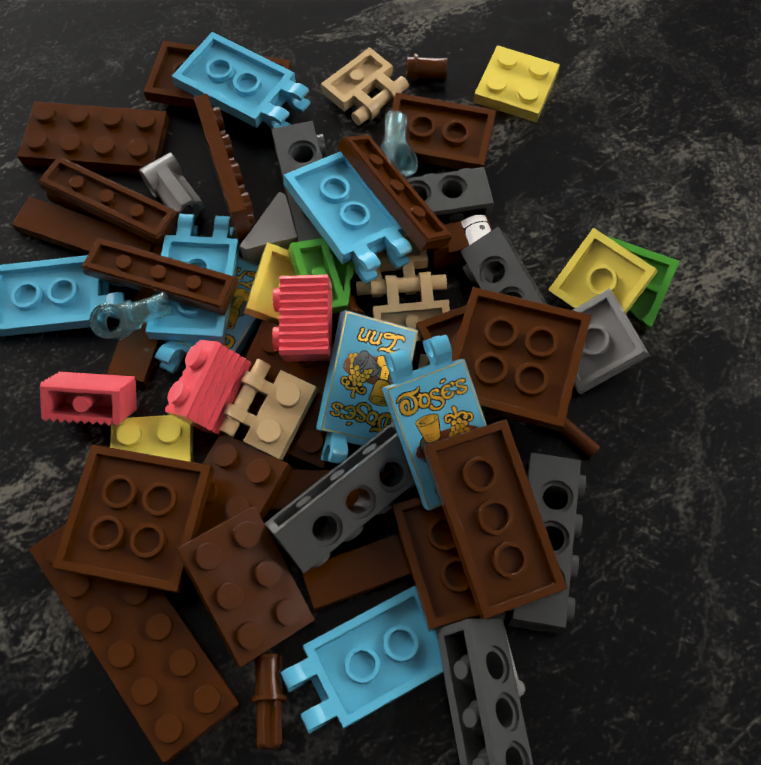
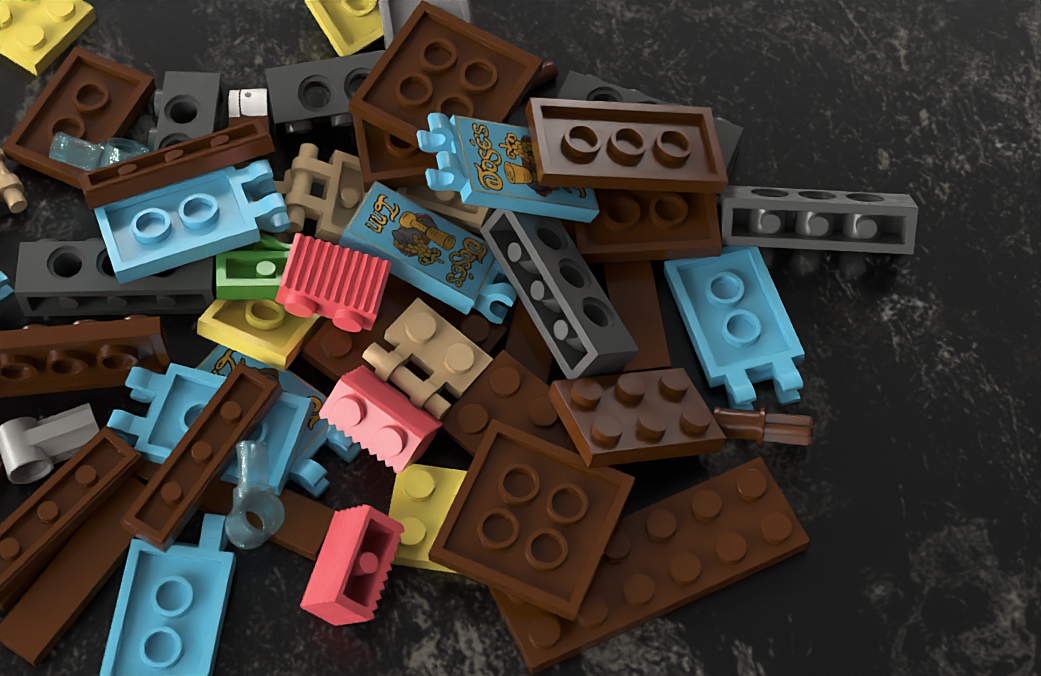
camera: 80 degrees left, 5 degrees down
(273, 227) = (179, 318): light grey slope -> none

